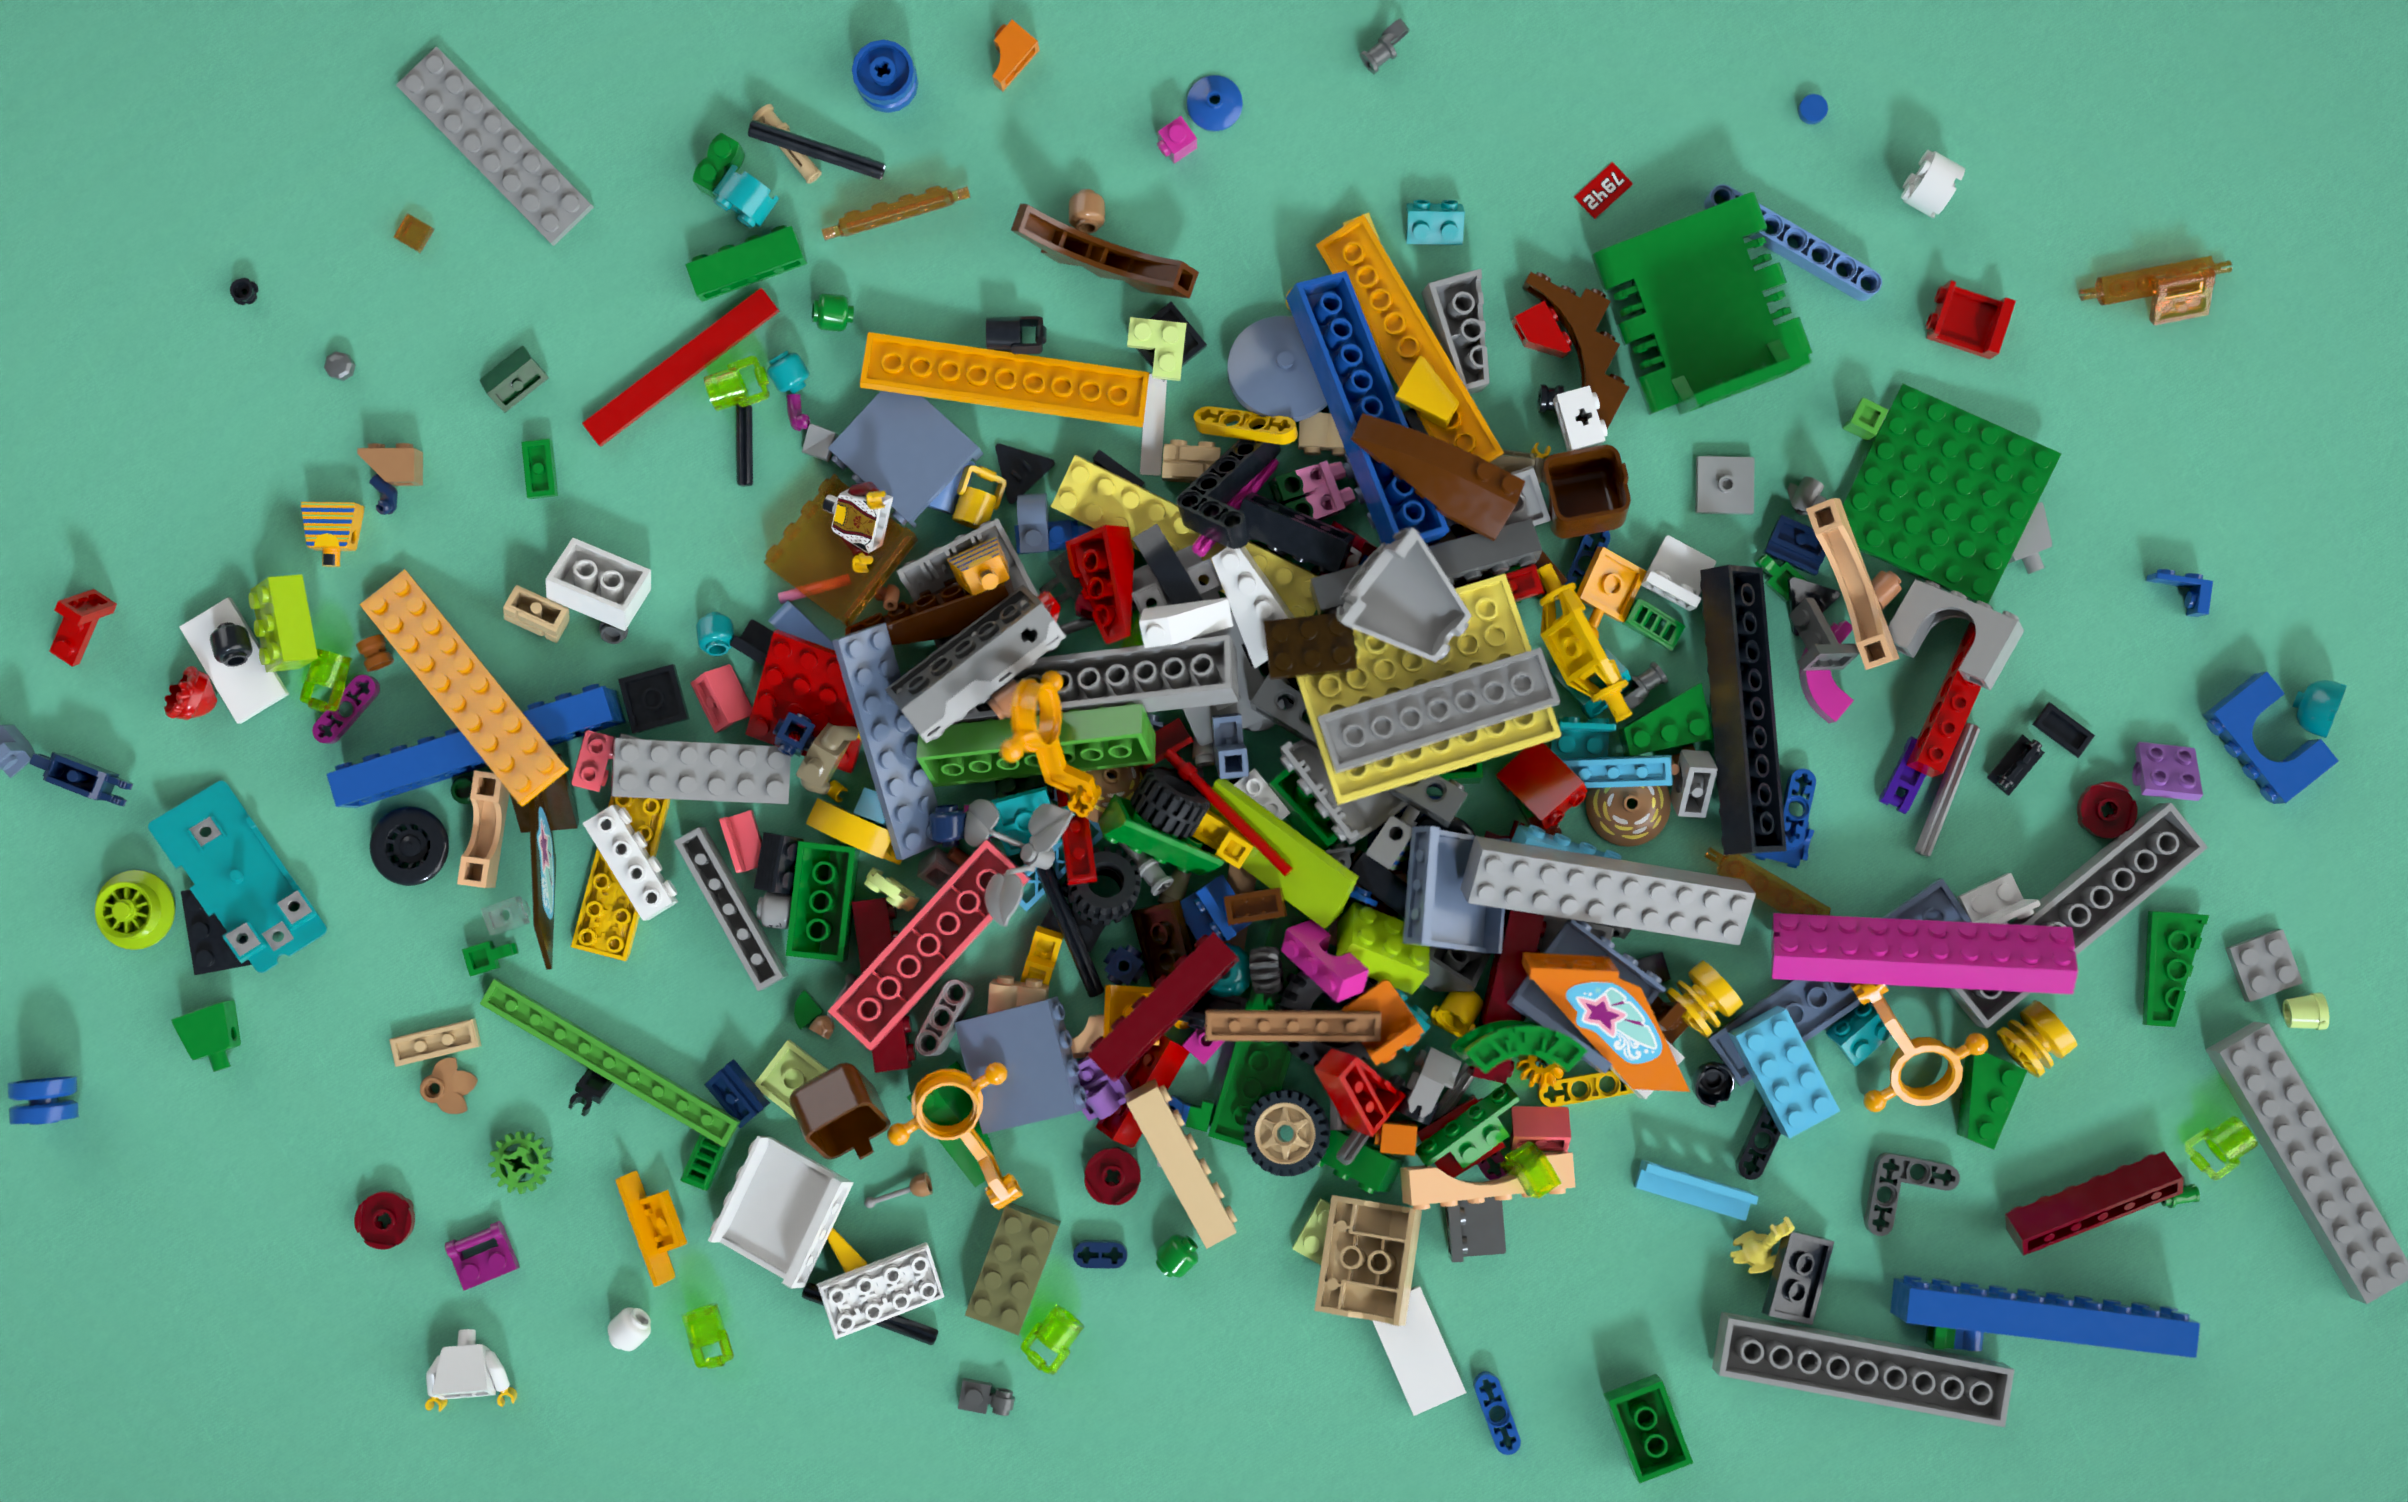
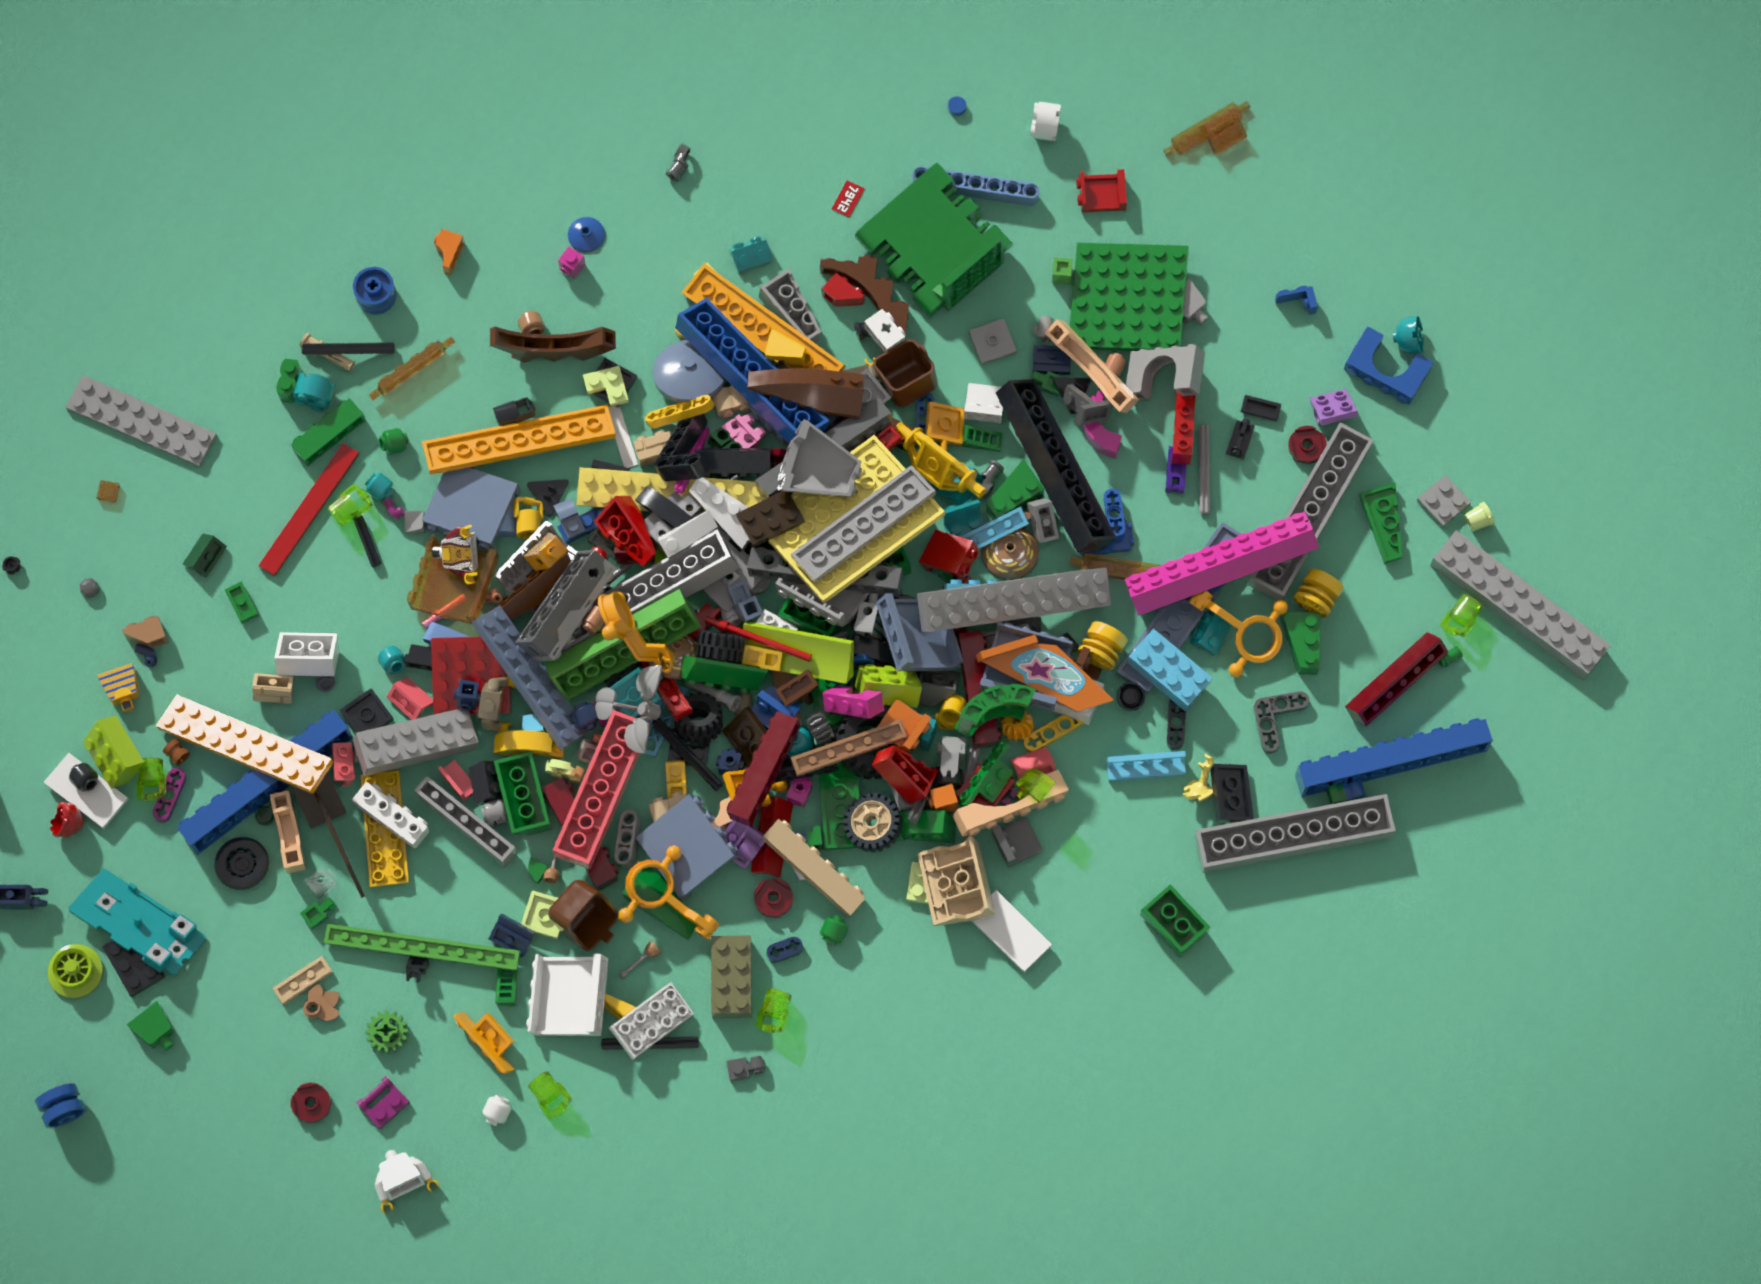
camera: 20 degrees left, 15 degrees down
(1497, 1435) = (1091, 959): blue beam -> none
(1997, 902) = (1262, 517): white bracket -> none

